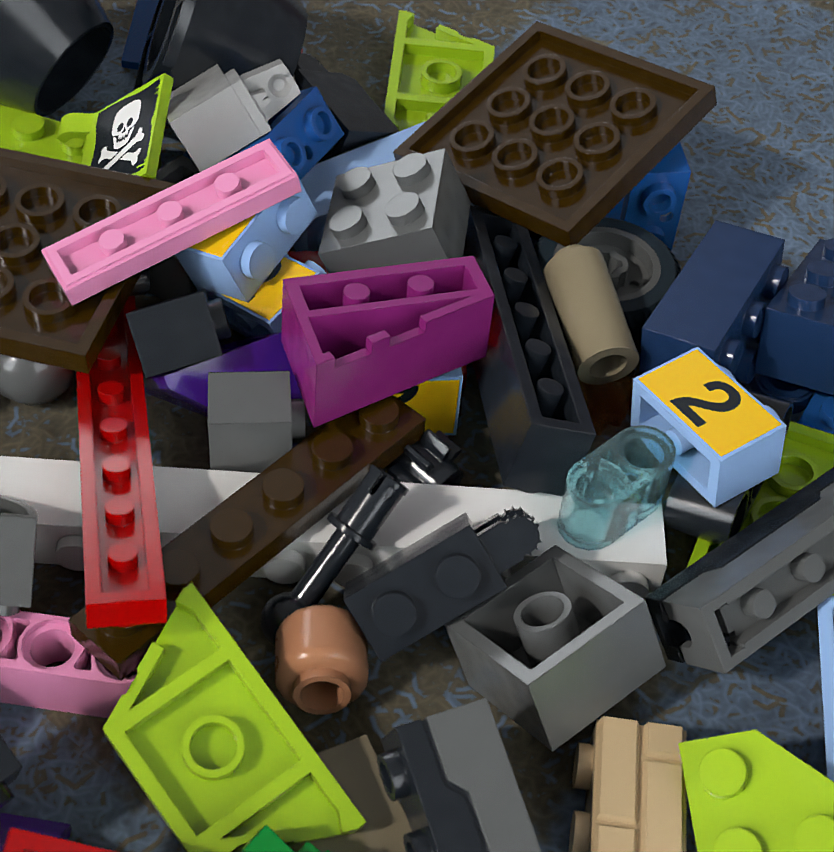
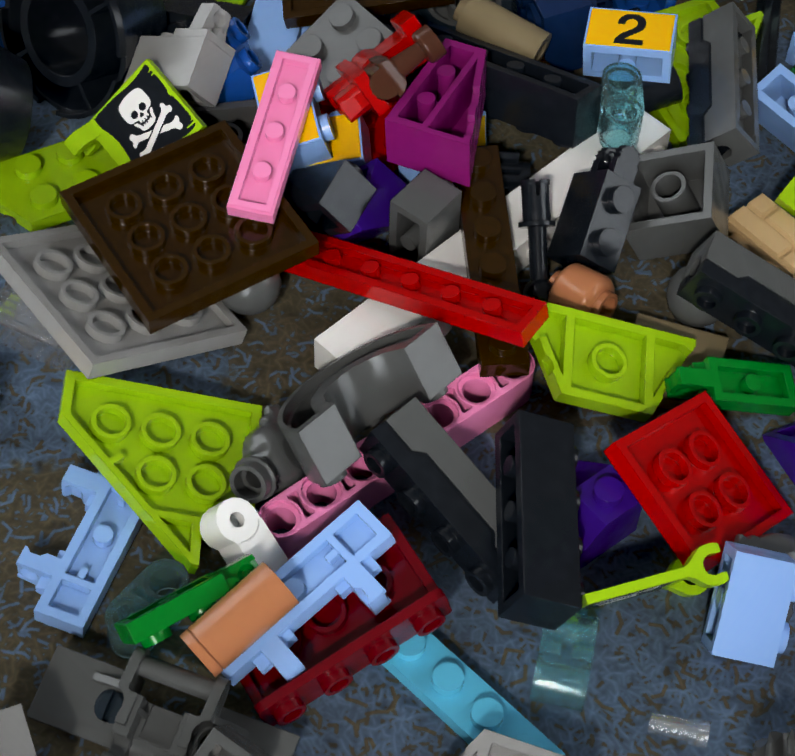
camera: 45 degrees left, 5 degrees up
(347, 237) = (382, 71): none -> hips

